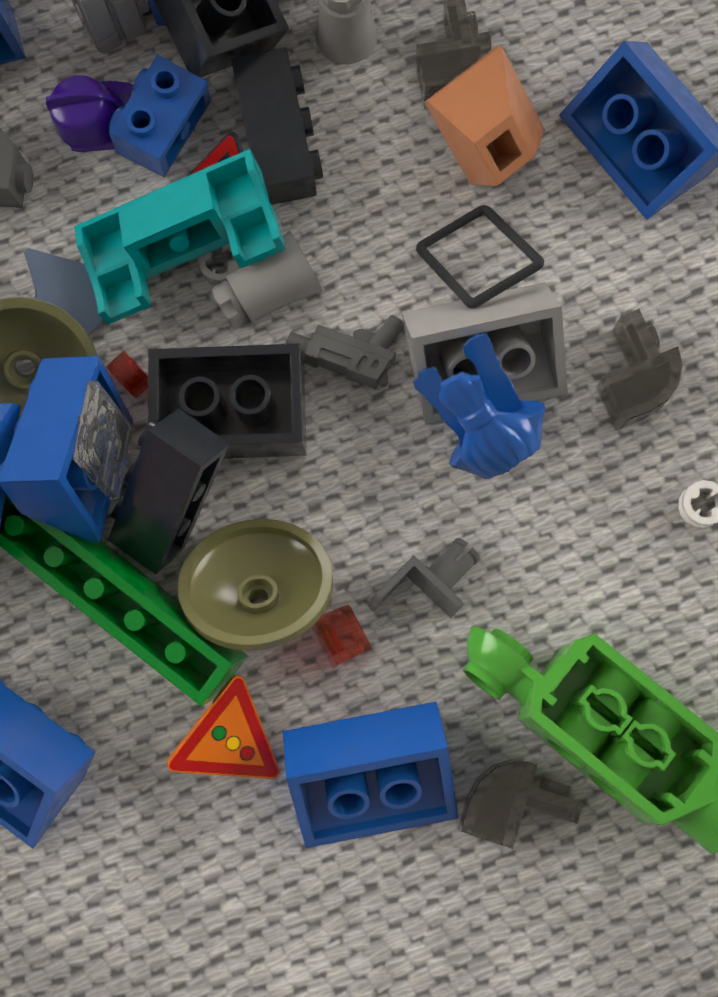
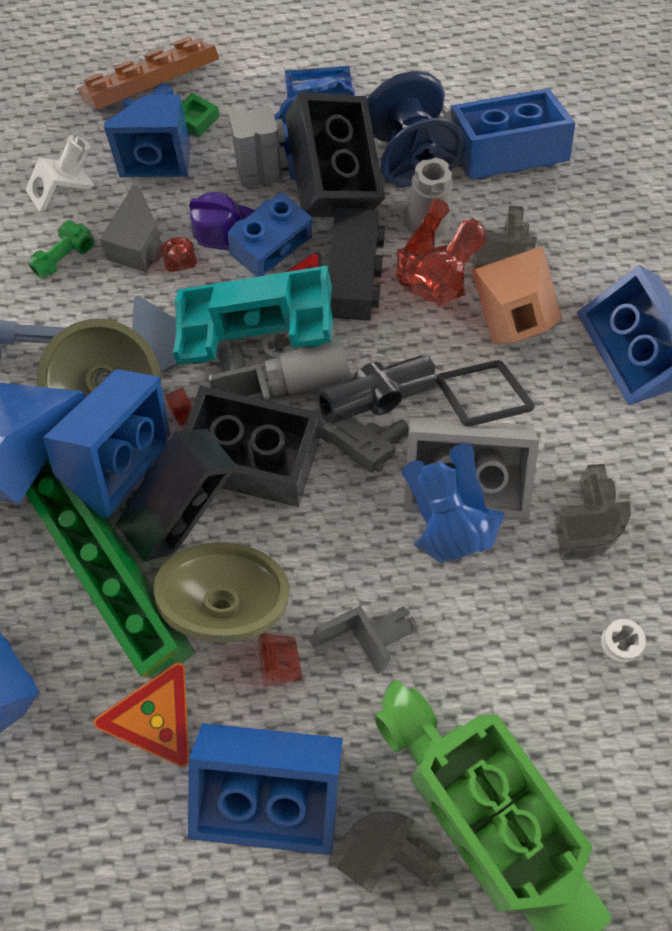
camera: 10 degrees right, 15 degrees down
(55, 174) = (178, 254): none -> clear red bush
(102, 440) = (138, 440): clear piece -> none
(184, 320) = (237, 377): none -> dark grey bracket
(354, 287) = (376, 388): none -> black piece
(382, 108) = (438, 271): none -> clear red piece

